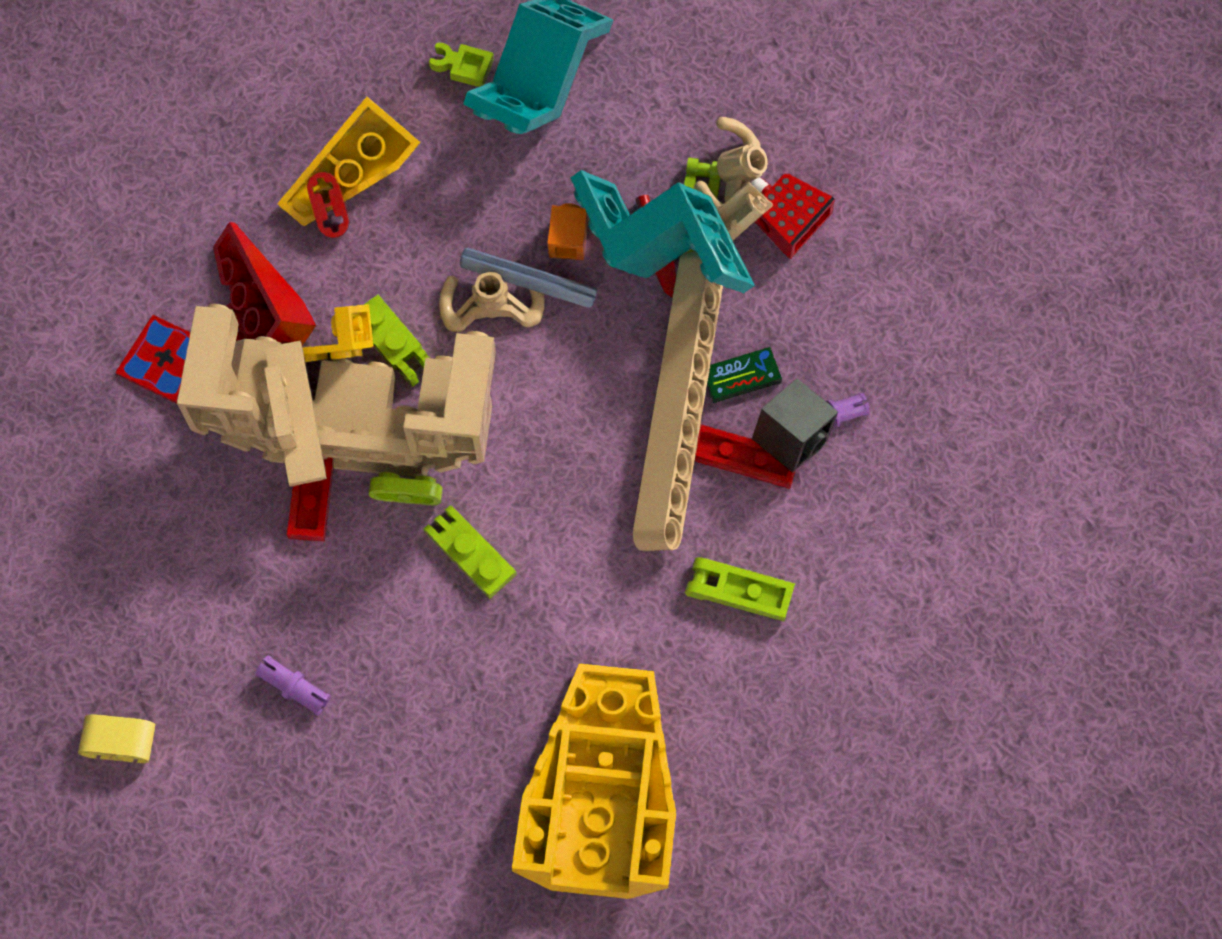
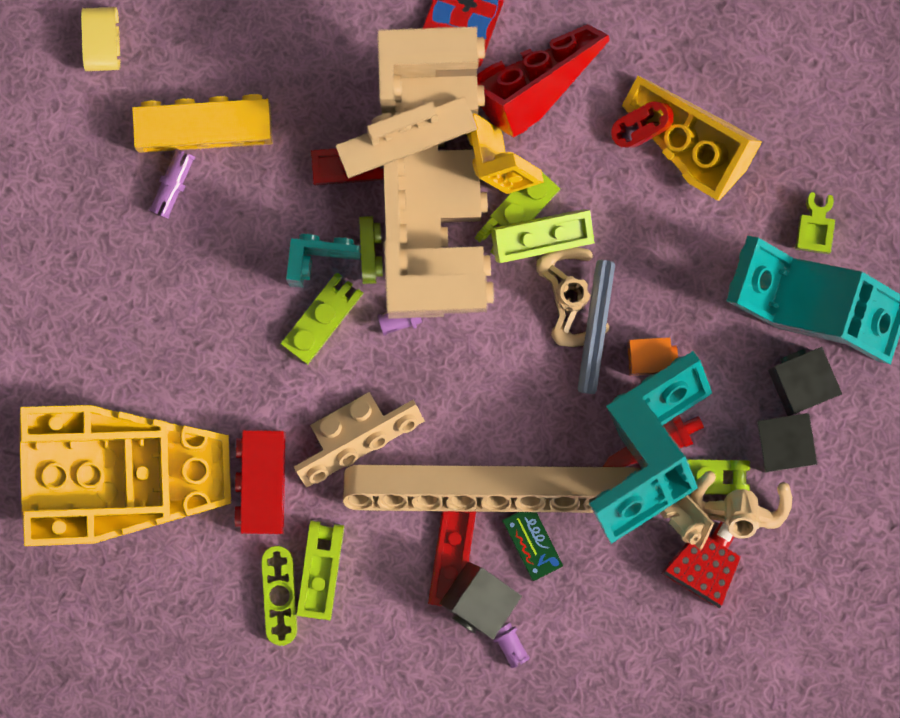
camera: 75 degrees right, 15 degrees up
(235, 642) = (202, 125): none -> yellow brick
(400, 552) = (308, 244): none -> teal bracket
(423, 313) = (542, 235): none -> plate
(486, 475) = (392, 325): none -> medium lavender pin
(597, 534) = (354, 433): none -> tan bracket
(617, 91) = (804, 380): none -> pearl dark grey head
(635, 634) = (261, 482): none -> red brick
(677, 115) = (787, 442): none -> pearl dark grey head
(771, 625) = (267, 587): none -> lime beam

